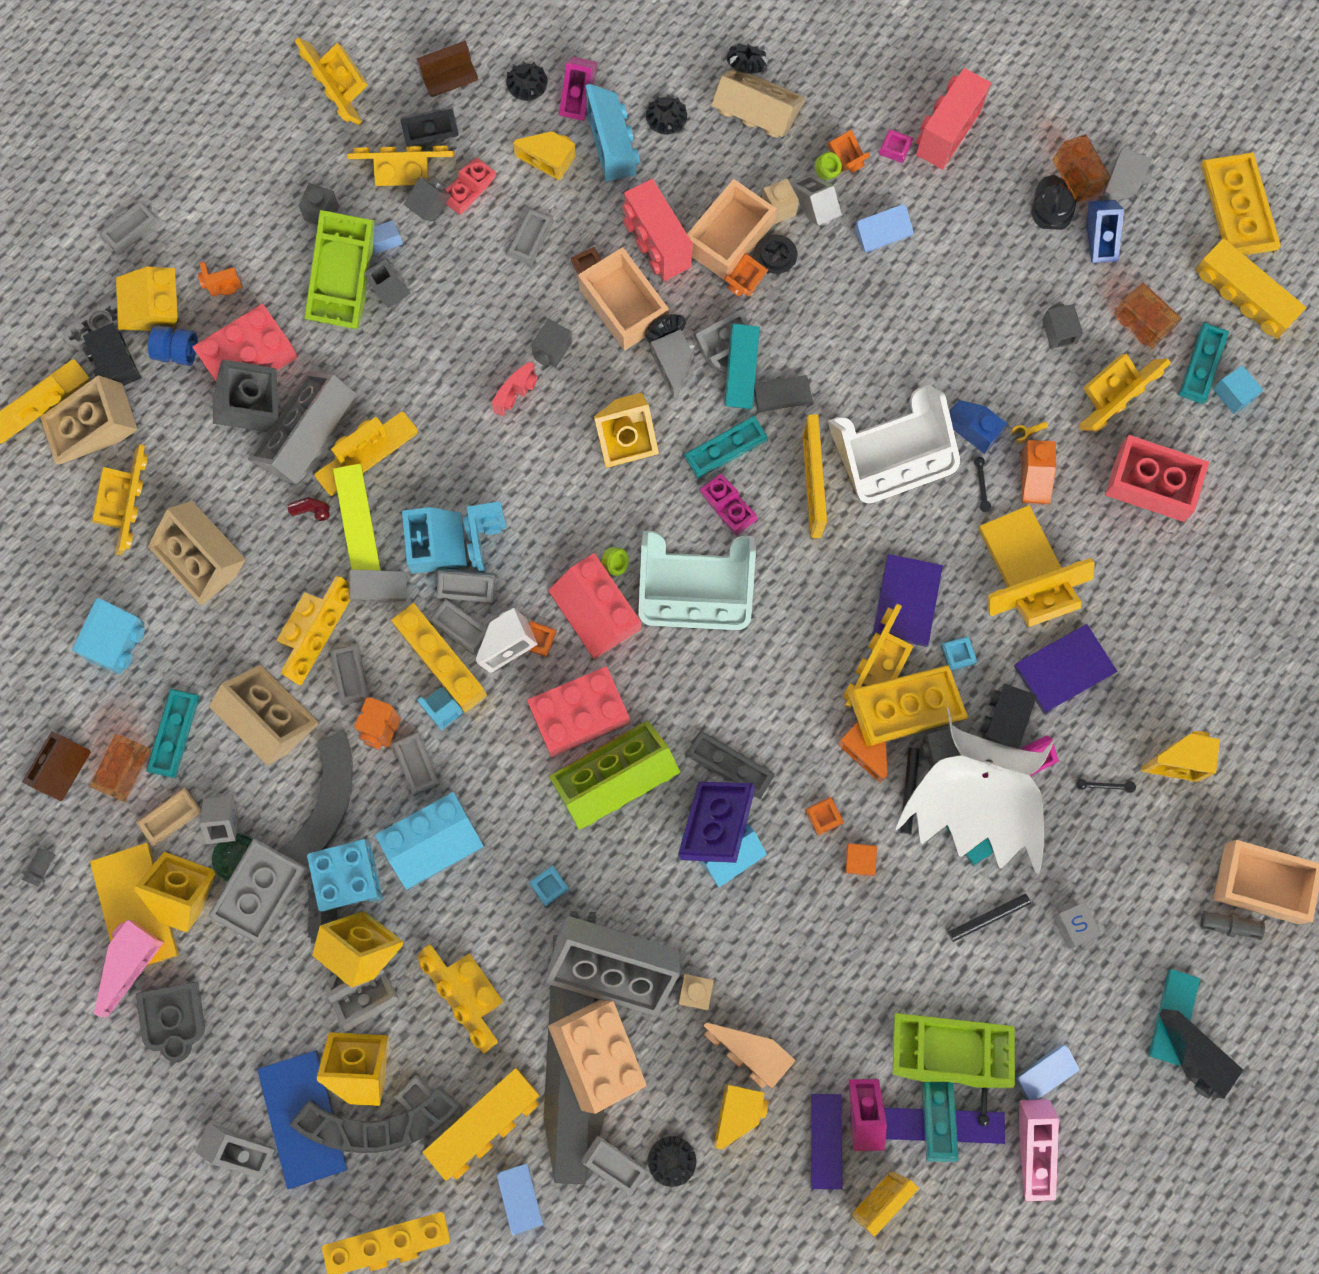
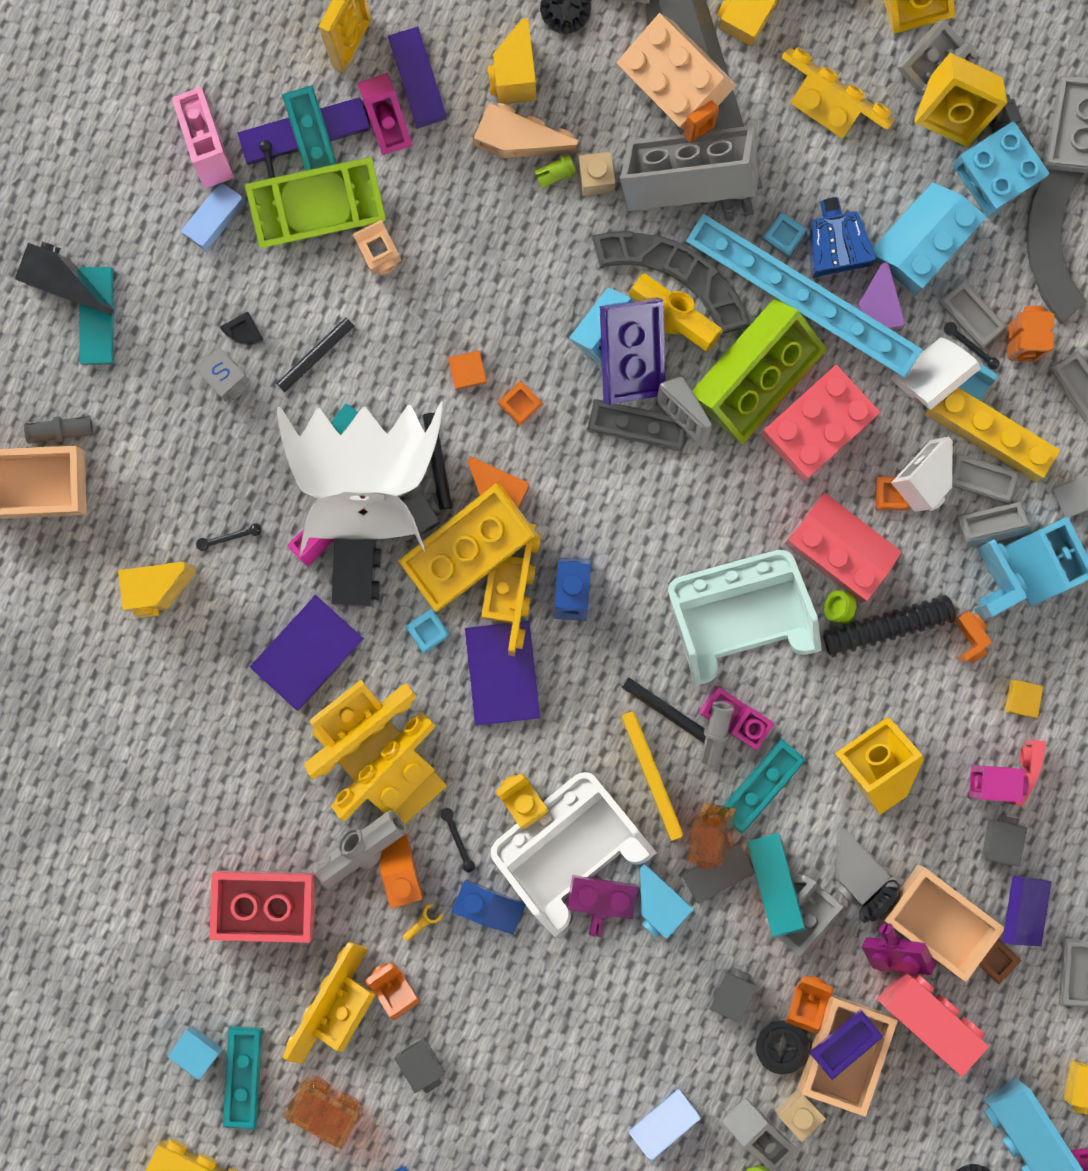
camera: 170 degrees right, 10 degrees up
(438, 757) = (951, 329): none -> black hinge
(467, 720) = (937, 372): none -> white slope
(493, 794) = (881, 300): none -> medium lavender slope
(494, 445) = (1024, 698): none -> yellow slope
(507, 862) = (838, 241): none -> blue torso
(513, 509) = (974, 630): none -> orange bracket
(542, 382) = (998, 783): none -> dark pink slope
(555, 285) = (1026, 911): none -> dark purple tile
(555, 822) = (805, 295): none -> medium azure plate
(580, 533) = (889, 626): none -> black piece
(591, 1001) = (701, 121): none -> orange tile
(648, 892) = (680, 263): none -> dark grey tile
(659, 833) = (678, 313): none -> yellow piece
(672, 290) = (898, 954): none -> magenta plate
(688, 761) = (683, 407): none -> light grey slope
(728, 1009) = (555, 171): none -> lime pin
(731, 230) = (846, 1044): none -> dark purple tile
(749, 494) = (716, 733): none -> light grey axle
(781, 415) = (711, 835): none -> clear orange brick
(783, 529) = (664, 709): none -> black bar
(802, 300) = (732, 994): none -> dark grey brick
(829, 647) = (572, 589): none -> blue torso
(835, 382) = (660, 904): none -> medium azure slope
(881, 401) = (601, 900): none -> magenta plate
(908, 991) = (377, 248): none -> light nougat window
(922, 494) = (522, 800): none -> yellow bracket
(1024, 546) = (392, 774): none -> yellow bracket
(1046, 960) = (243, 330): none -> black tile
(1066, 496) = (359, 849): none -> light grey piece
(1067, 386) = (392, 990): none -> orange bracket

